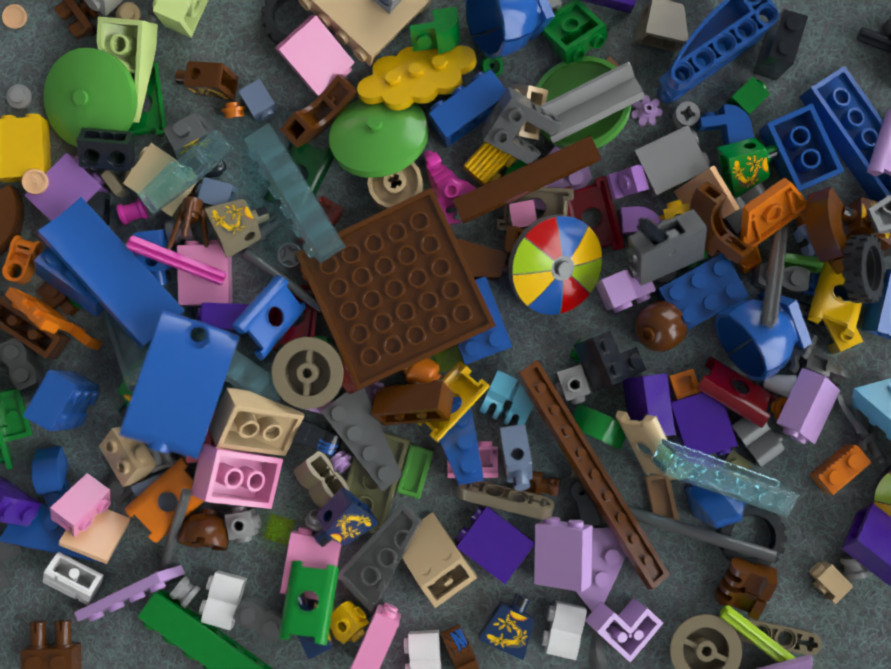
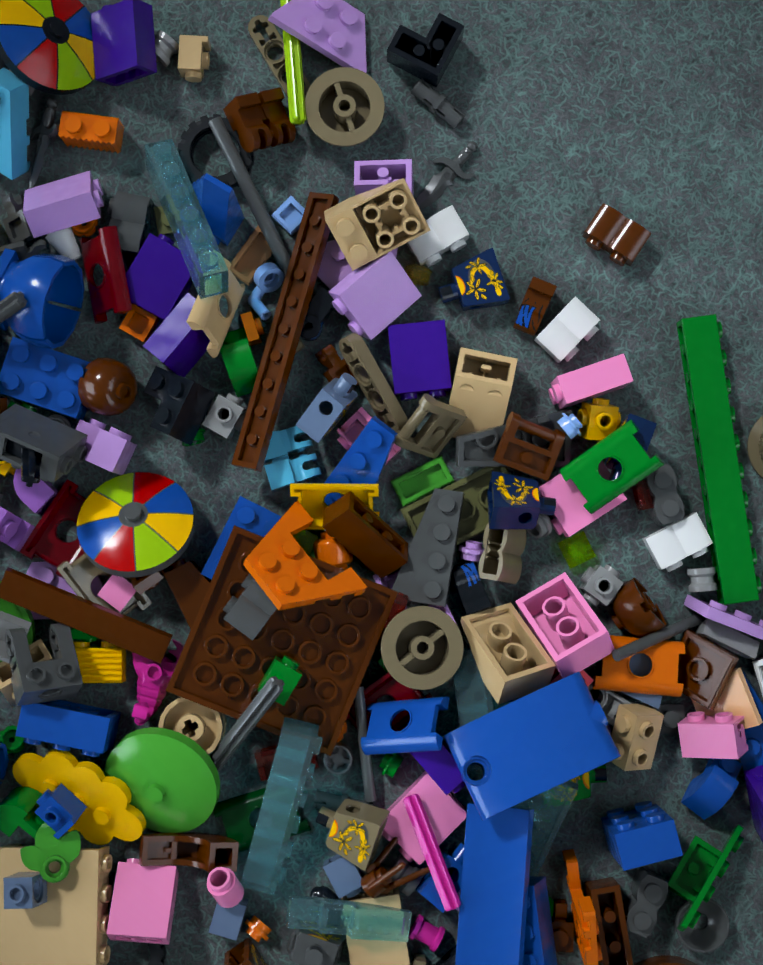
camera: 135 degrees left, 0 degrees up
(126, 540) = (704, 669): none -> reddish brown plate
(131, 573) = (729, 638): none -> light grey slope
(256, 285) = (390, 764): none -> green plate
(272, 604) = (642, 495): none -> clear red tile
(276, 113) = (225, 887): none -> bright pink brick
(360, 601) = (570, 425): none -> light blue plate
(364, 220) = (247, 722): none -> dark grey axle
(367, 554) = (527, 456): none -> reddish brown plate
(370, 265) = (283, 669): none -> green brick
(401, 28) = (50, 849): none -> bright green plate
(419, 55) = (59, 809): none -> blue brick
(432, 332) = (289, 573): none -> orange wing
(433, 293) = (250, 609): none -> dark grey brick
(437, 509) = (435, 432): none -> dark tan plate
(550, 595) = (418, 274): none -> clear yellow tile
(608, 600) = (375, 222): none -> tan slope
(613, 454) = (252, 327): none -> orange plate
(637, 493) = (267, 279): none -> light blue plate
(666, 546) = (289, 215): none -> light blue tile

